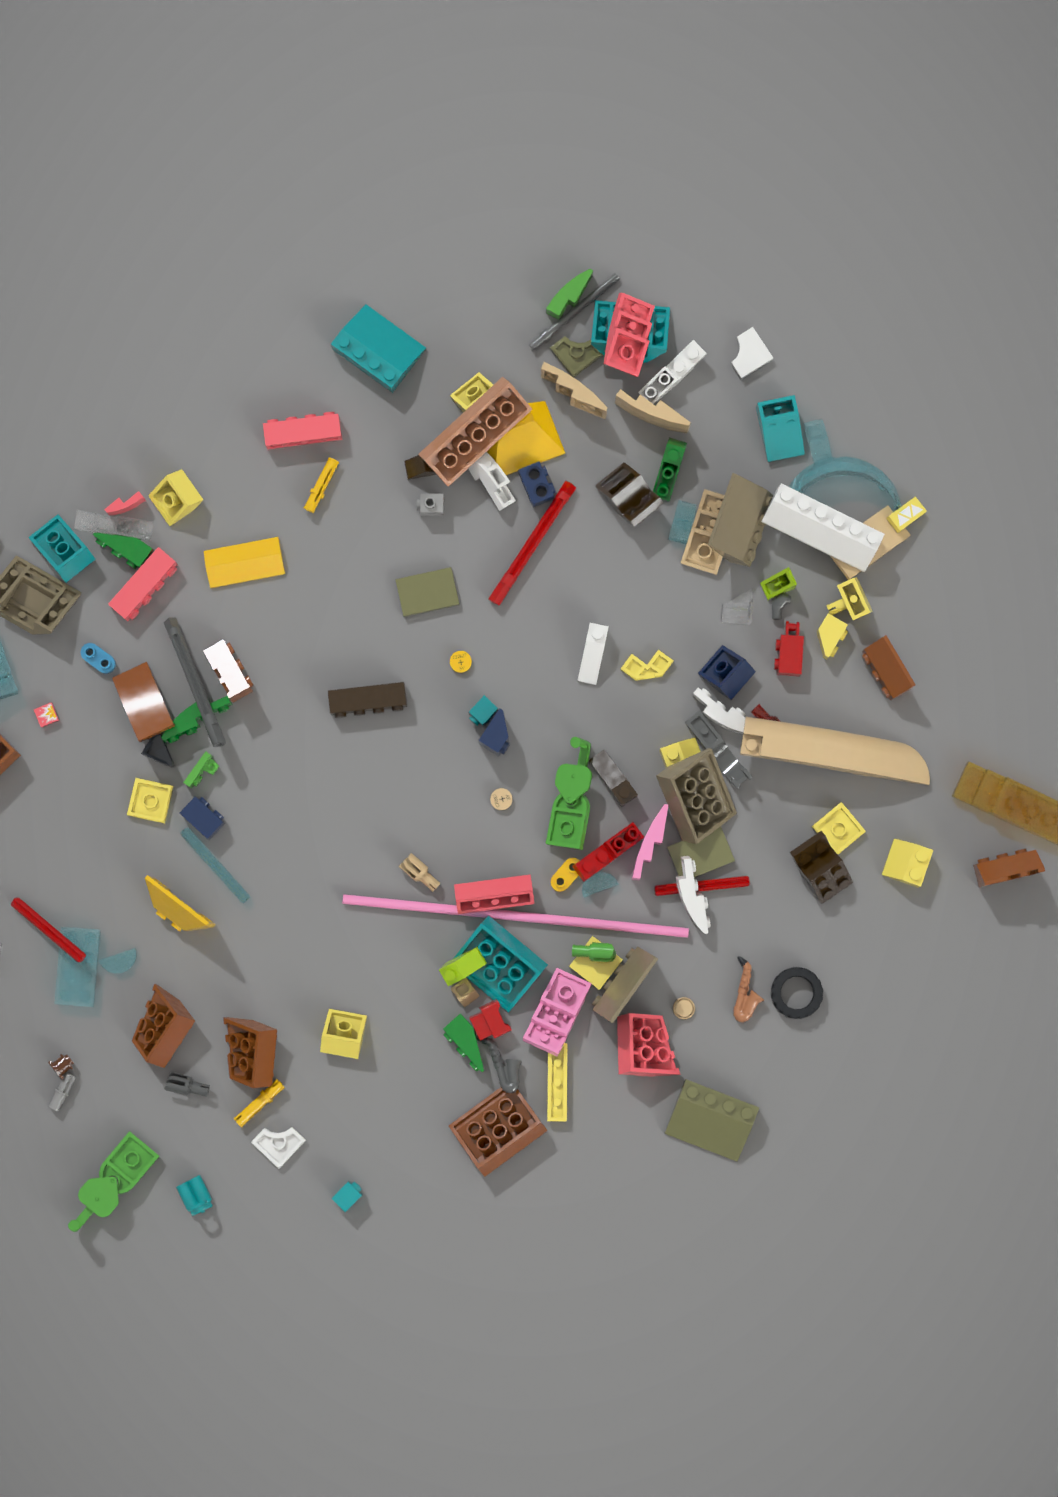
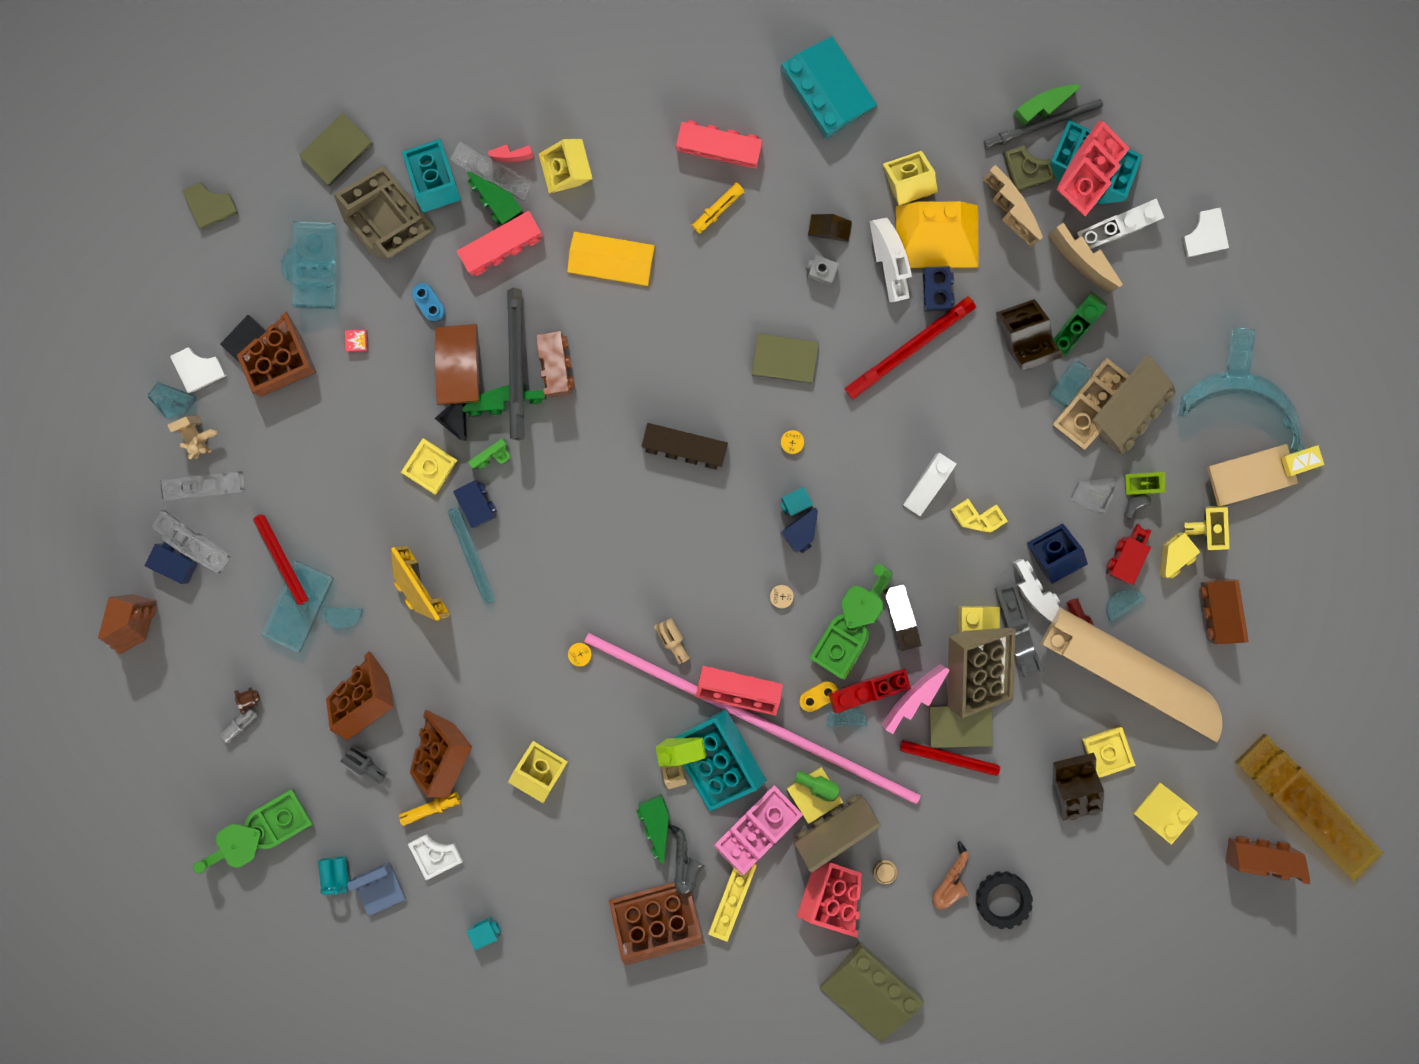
camera: 20 degrees right, 5 degrees up
(239, 1192) = (378, 888): none -> sand blue bracket
(342, 916) = (579, 654): none -> yellow piece
(475, 431) = (897, 211): nougat slope -> none
(489, 1021) = (687, 815): red piece -> none
(693, 902) = (935, 770): white slope -> none
(780, 428) = (1209, 323): teal slope -> none
(800, 693) = (1122, 602): none -> clear light blue tile
(822, 527) = (1215, 444): white slope -> none

